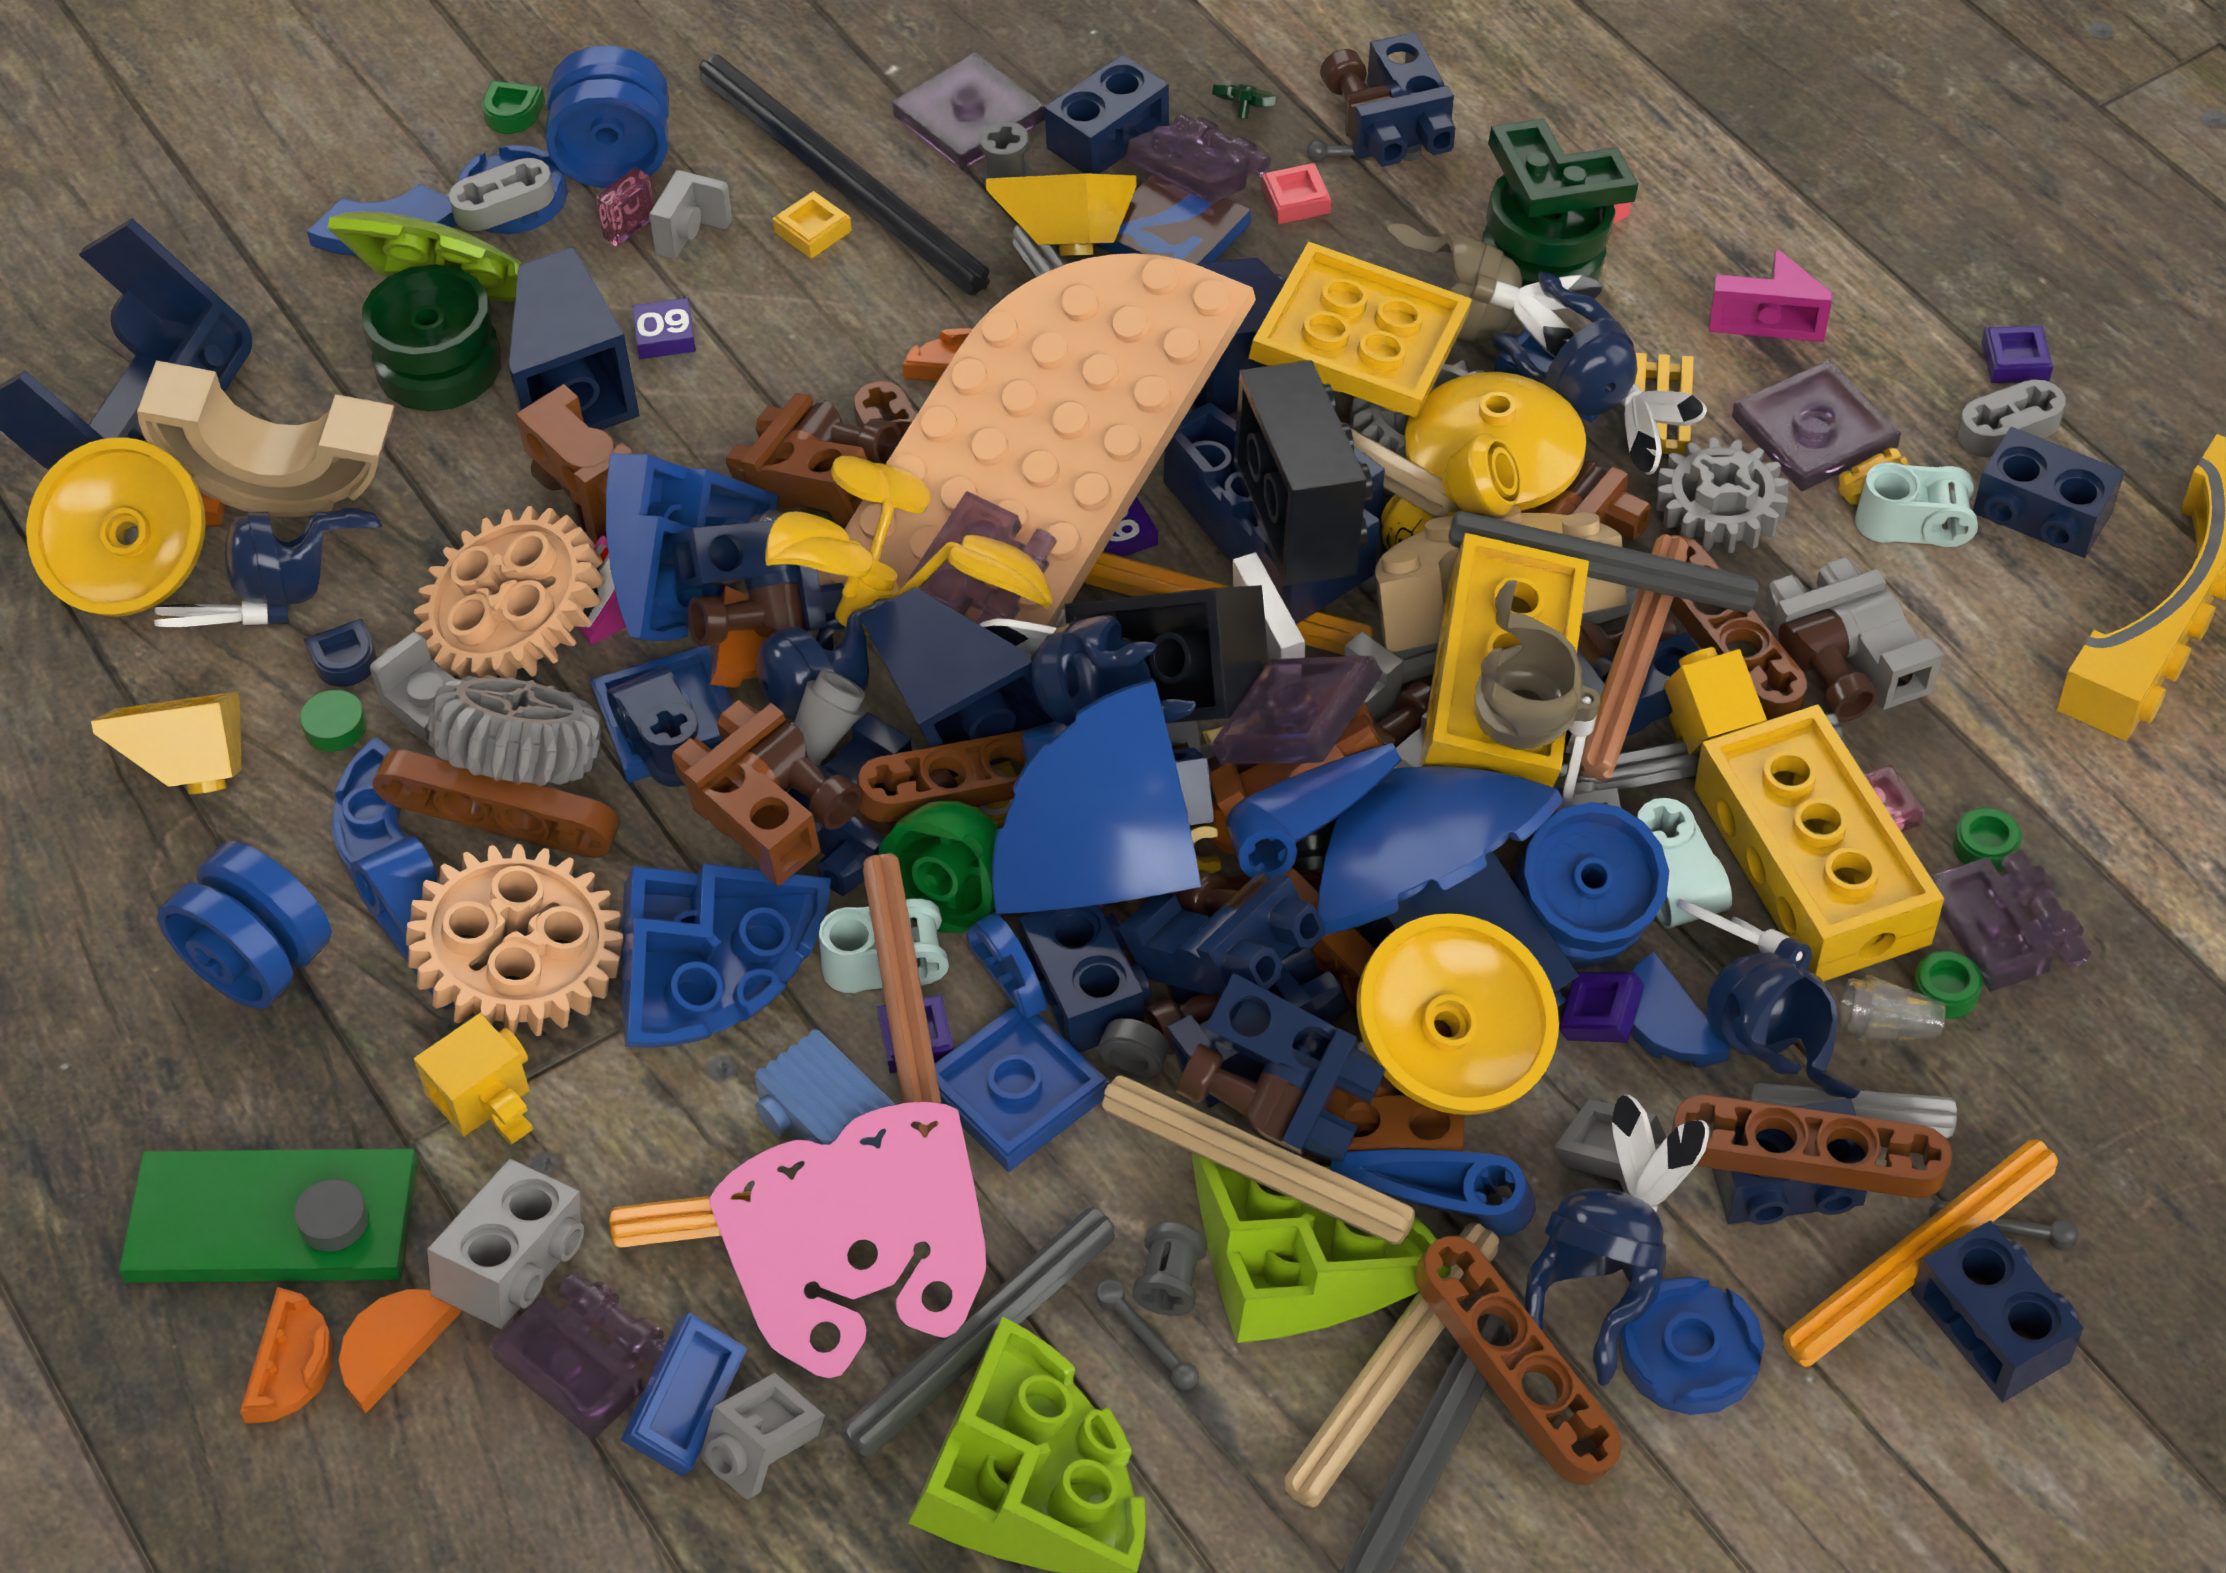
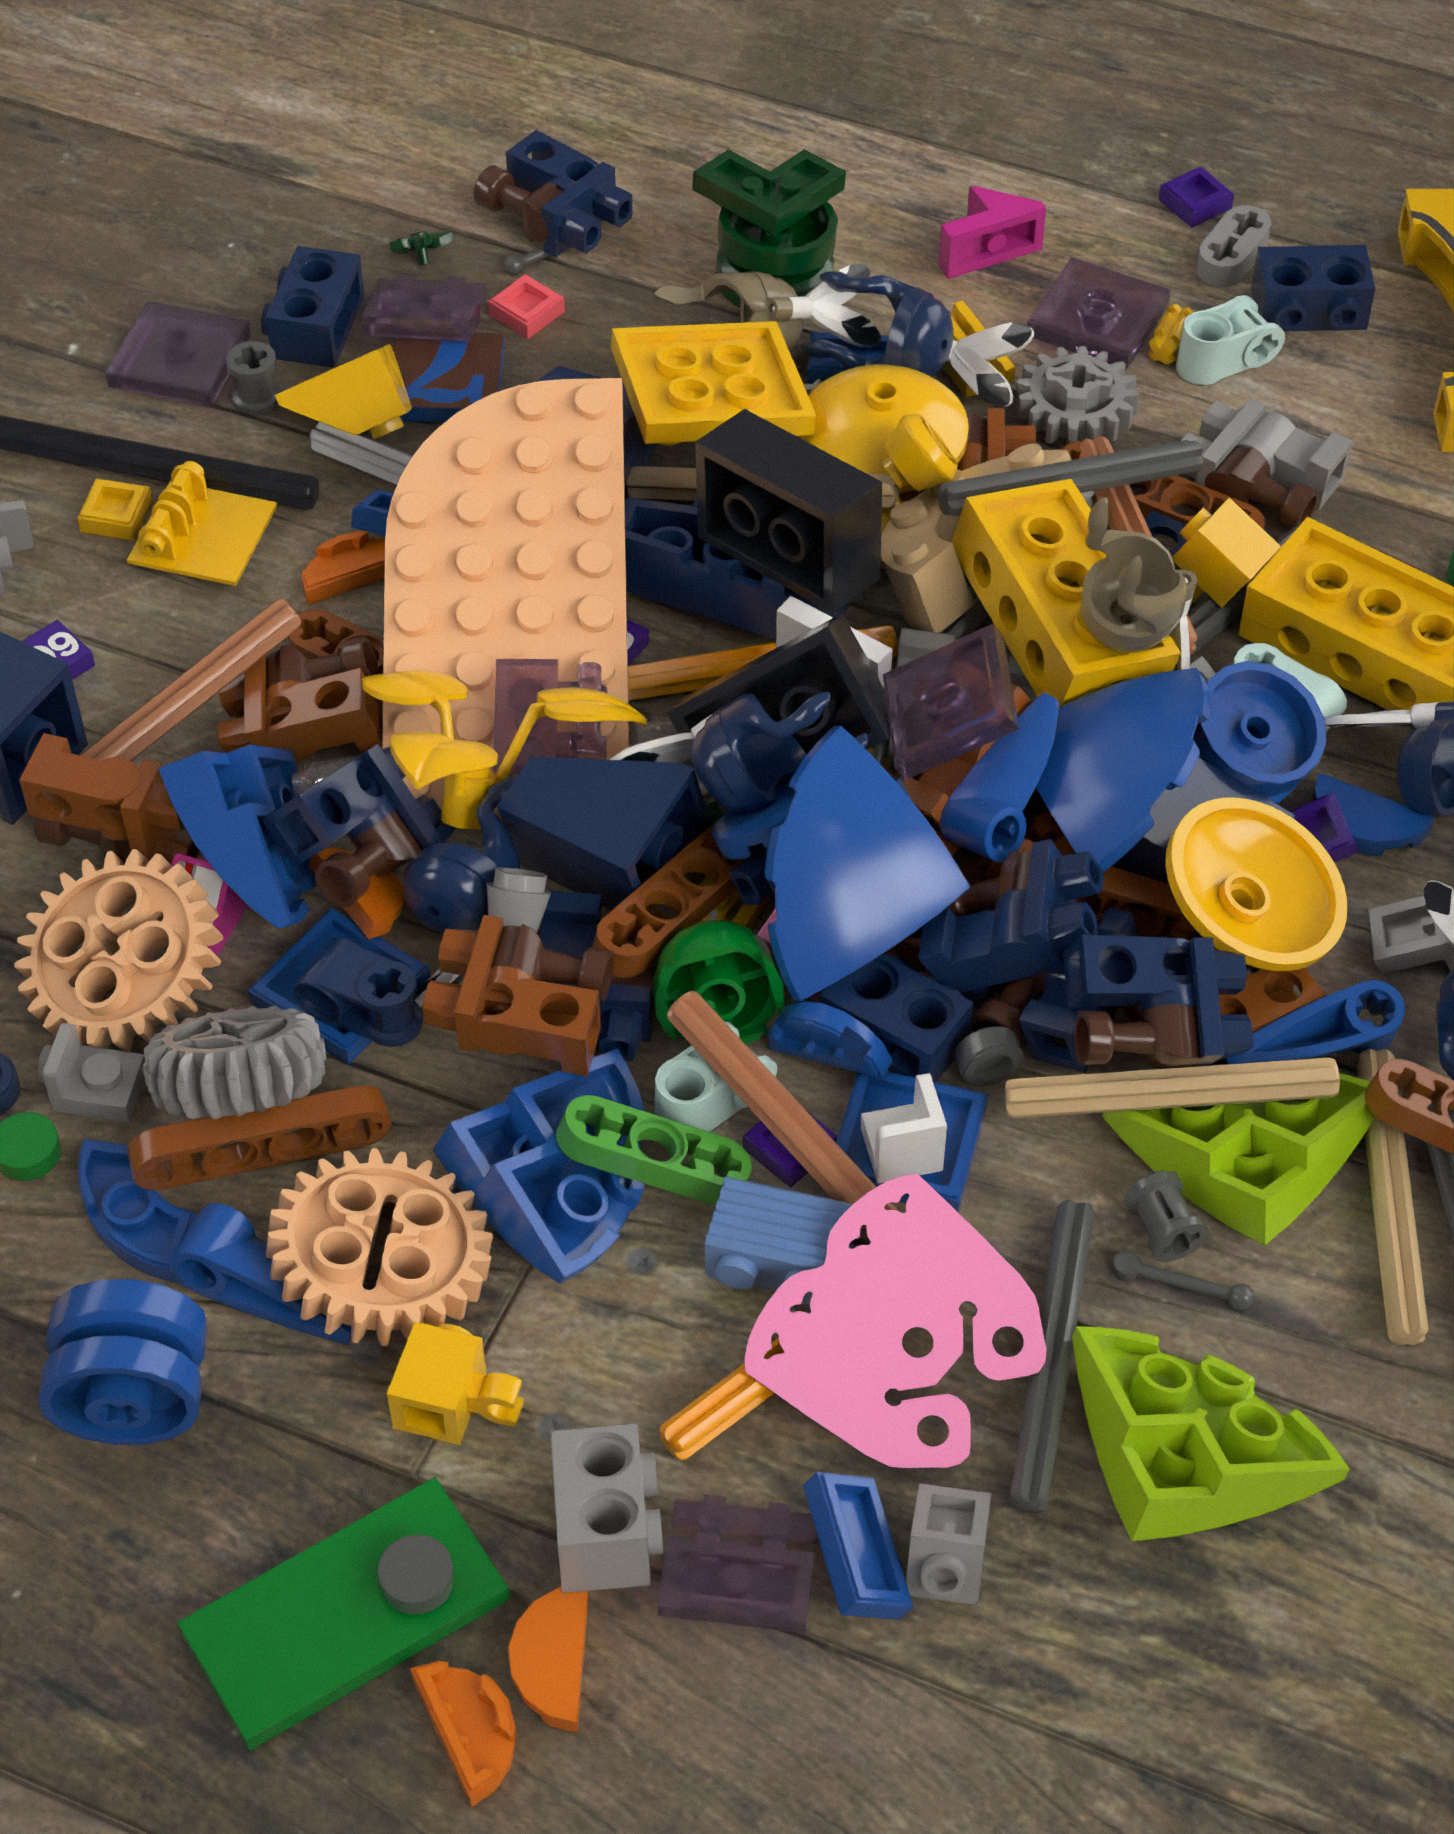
camera: 35 degrees left, 0 degrees up
(728, 404) = (198, 684): none -> nougat axle
(785, 949) = (629, 1162): none -> bright green beam
(861, 271) = (201, 529): none -> yellow hinge
(994, 1077) = (907, 1136): none -> white panel

